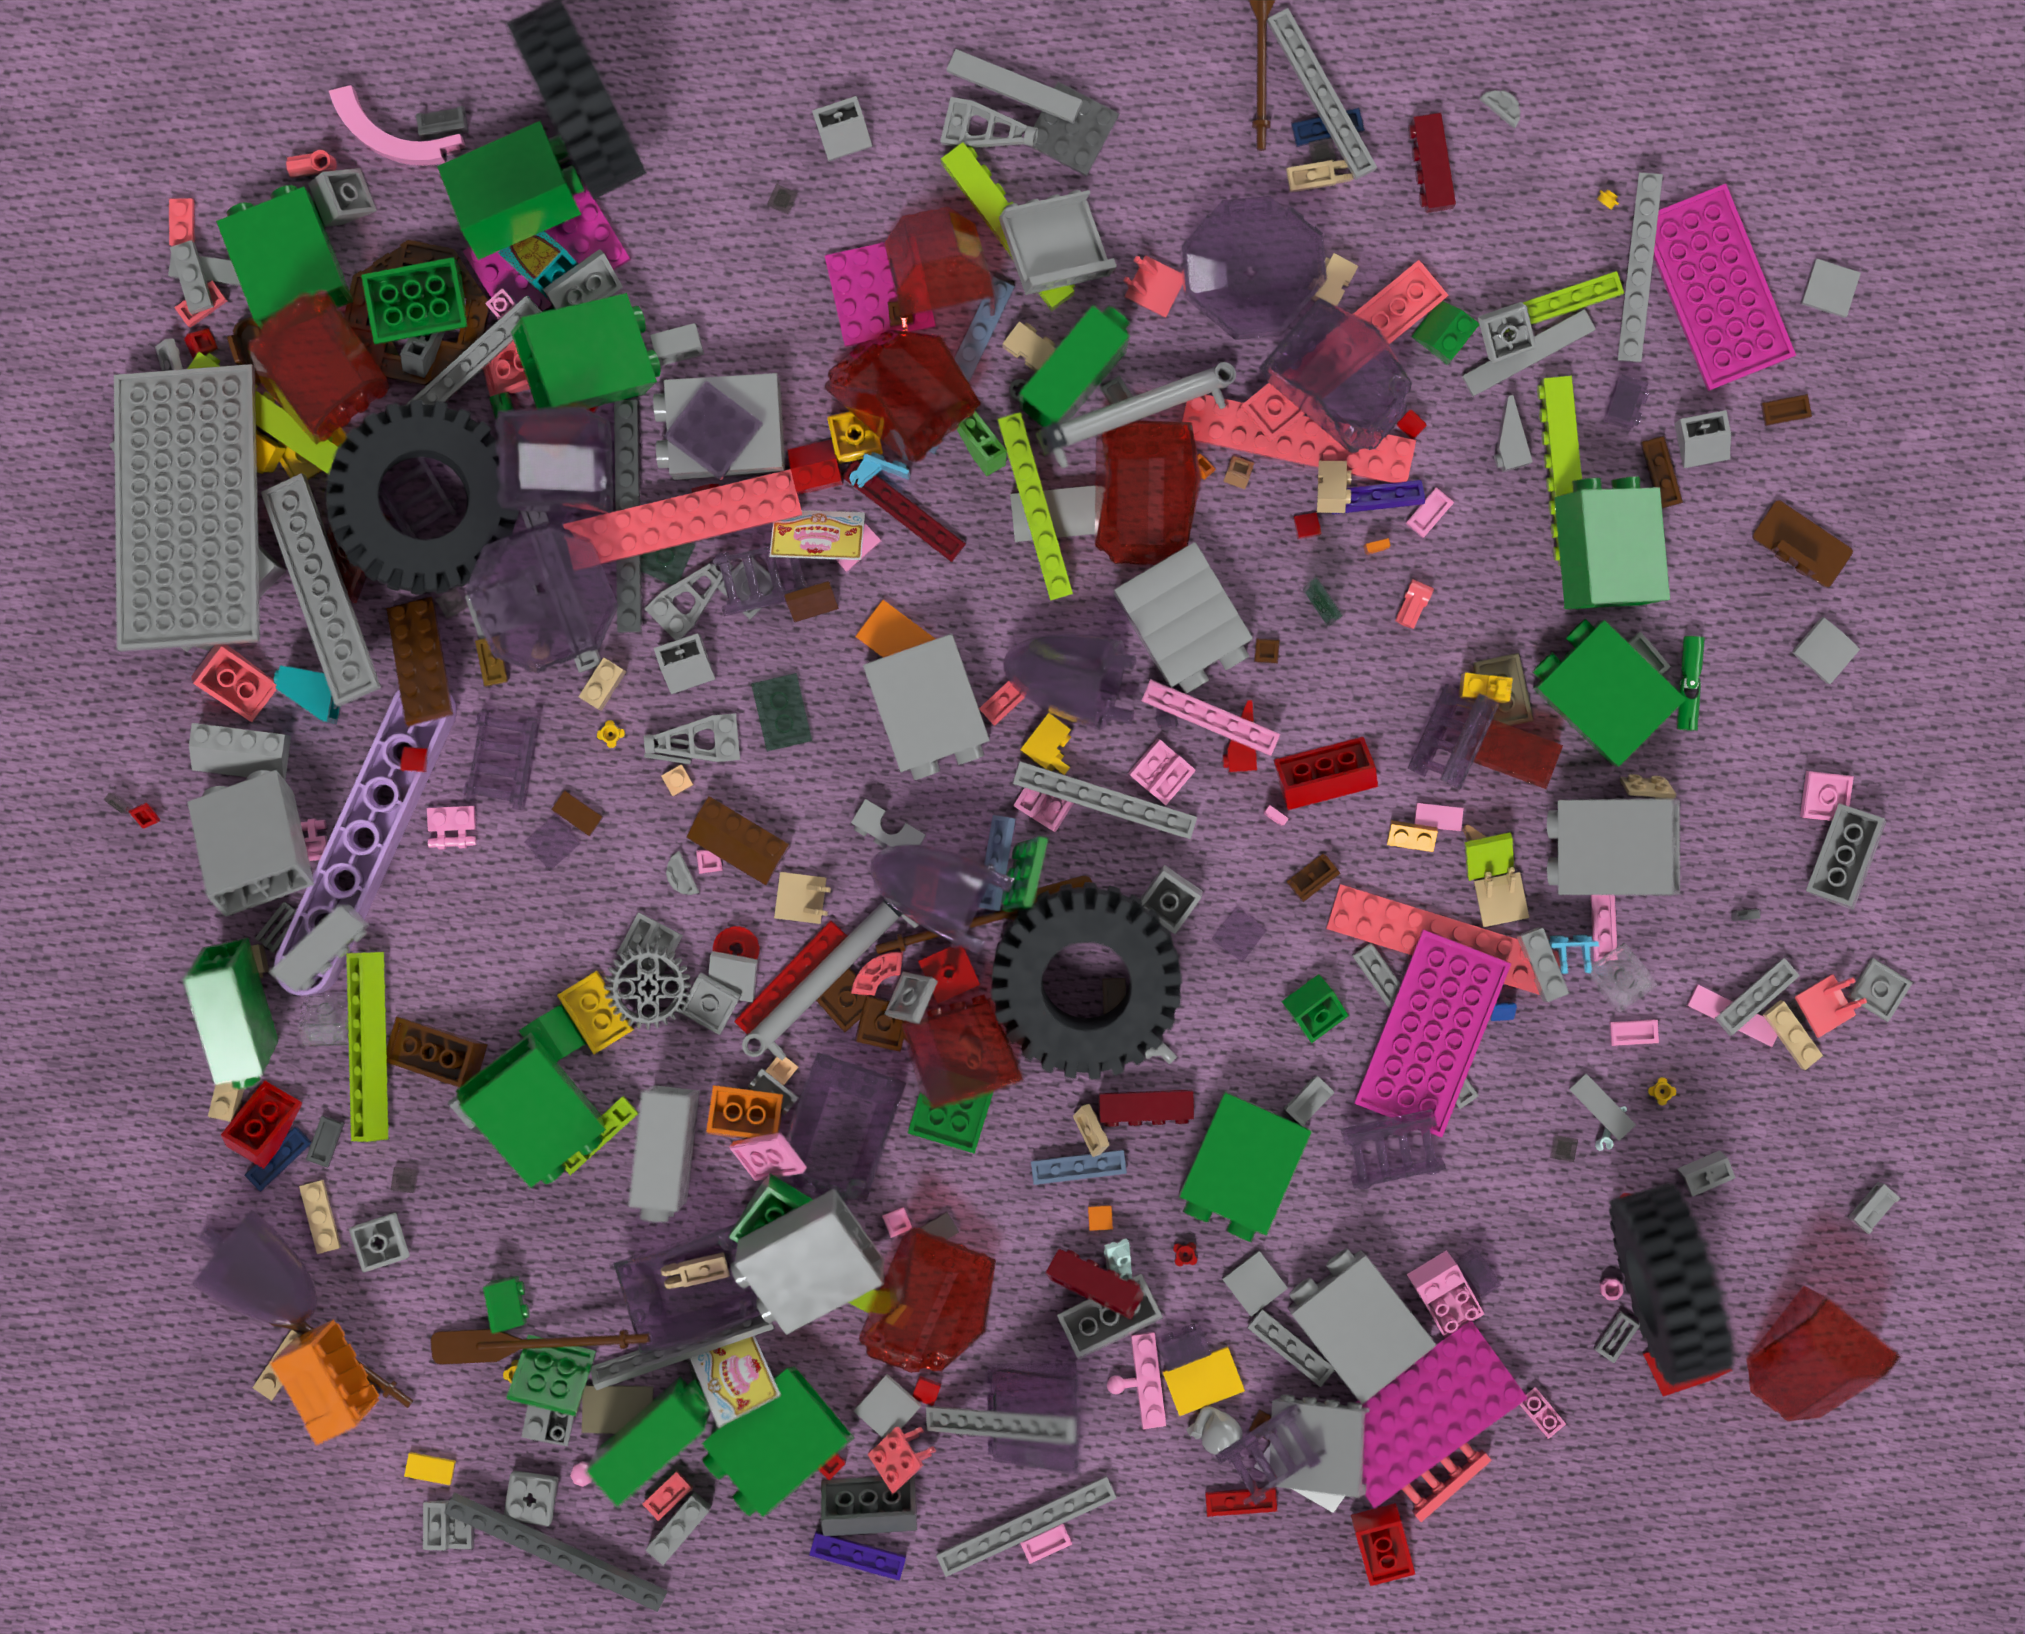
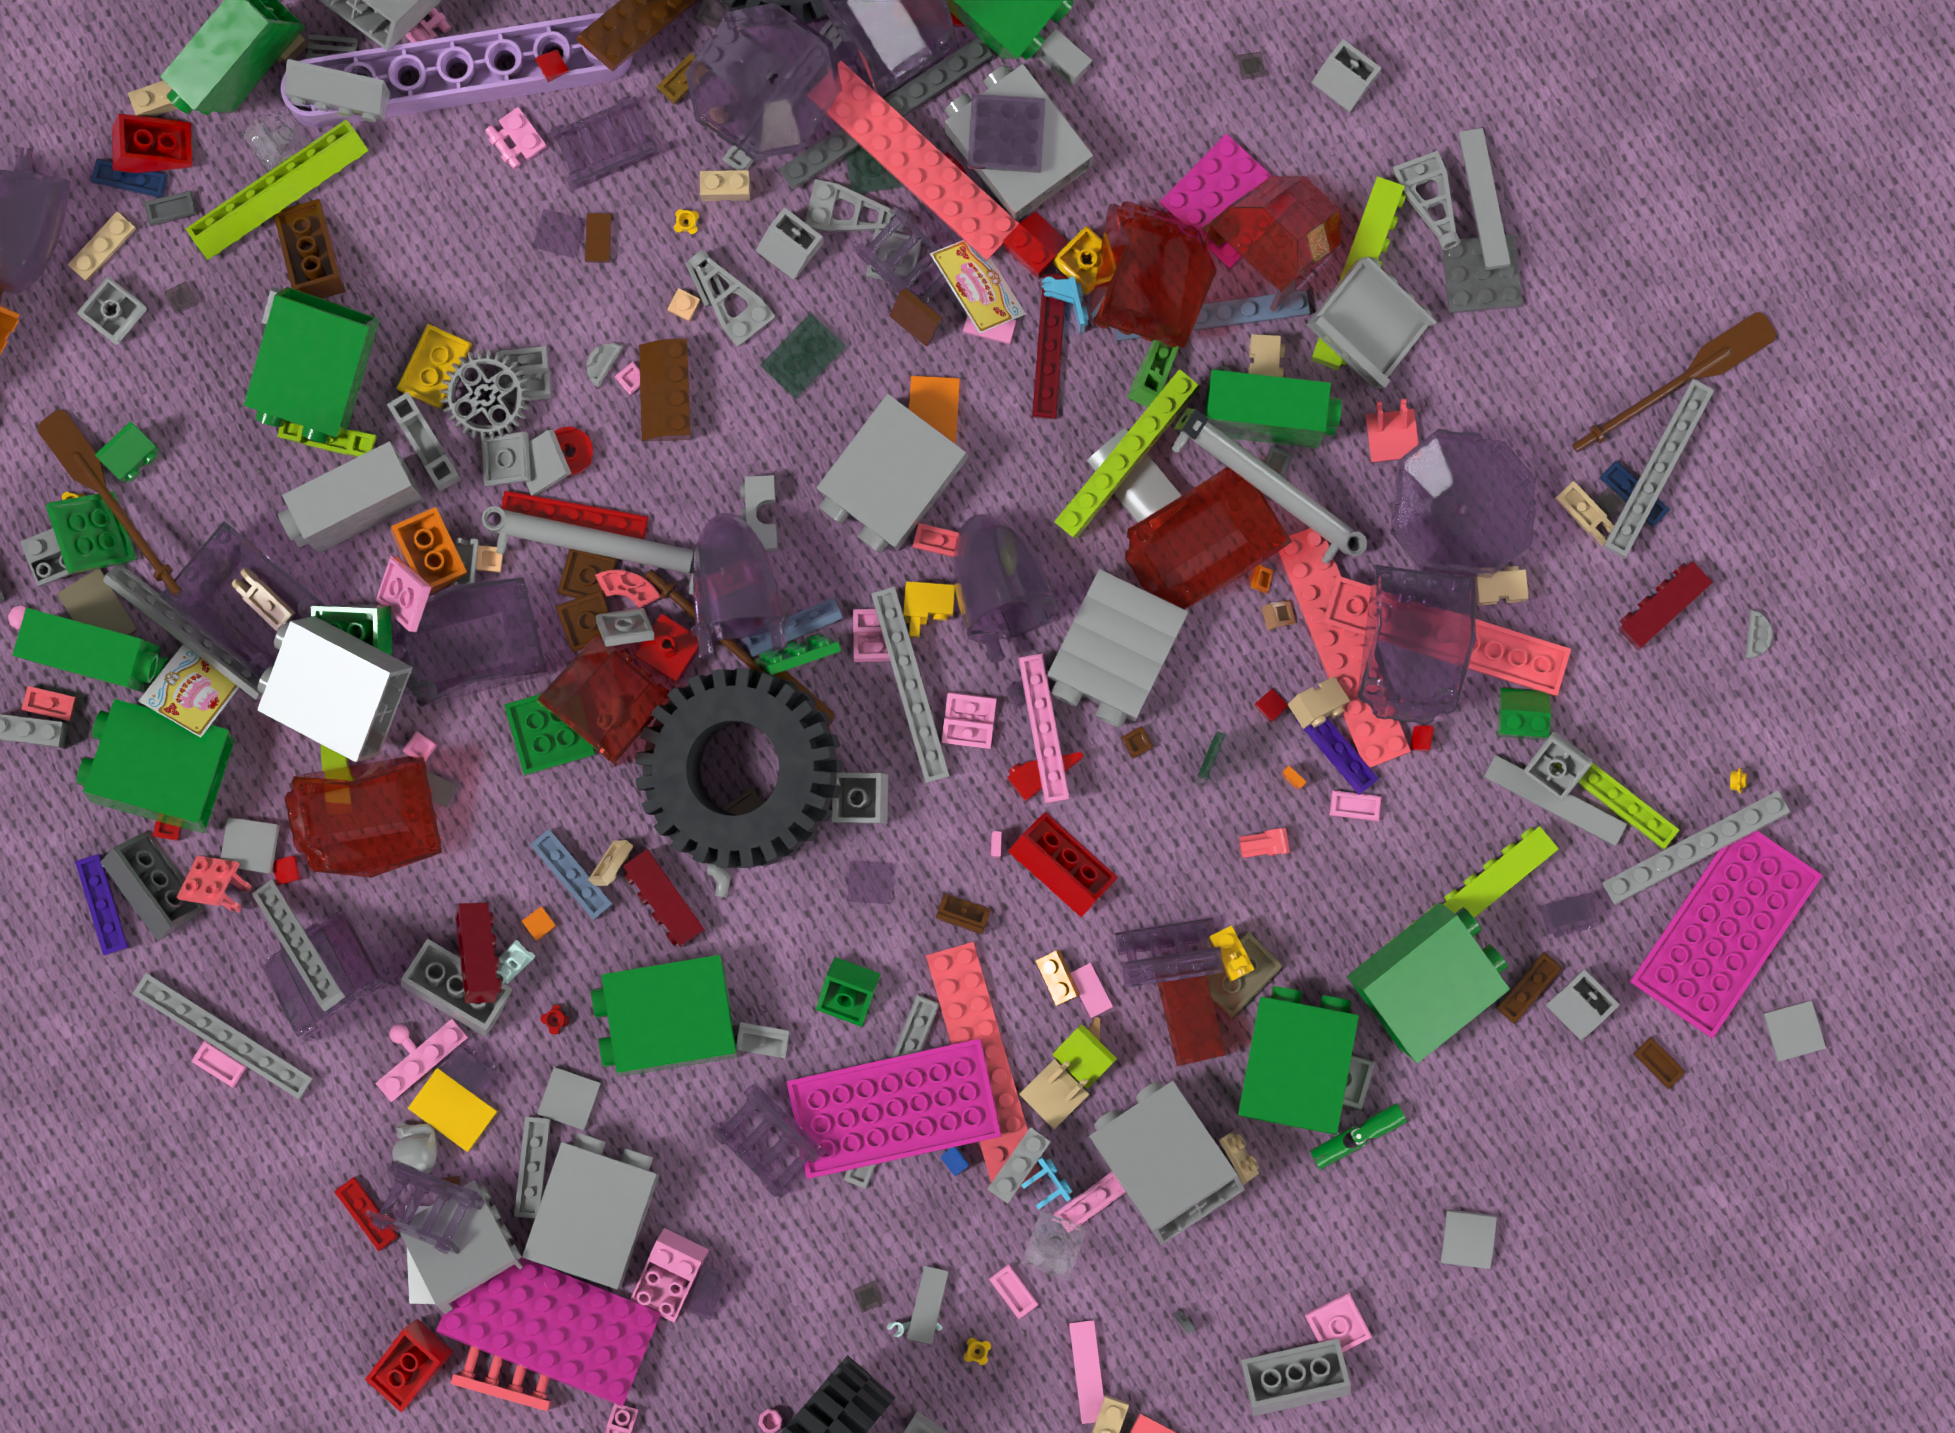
camera: 55 degrees right, 5 degrees down
(555, 1033) = (393, 343): green slope -> none
(653, 1060) = (424, 441): none -> light grey arch
(801, 898) = (650, 477): tan plate -> none
(1511, 444) = (1462, 838): light grey slope -> none
(1757, 997) = (1117, 1379): light grey plate -> none
(1802, 544) = (1549, 1155): reddish brown bracket -> none

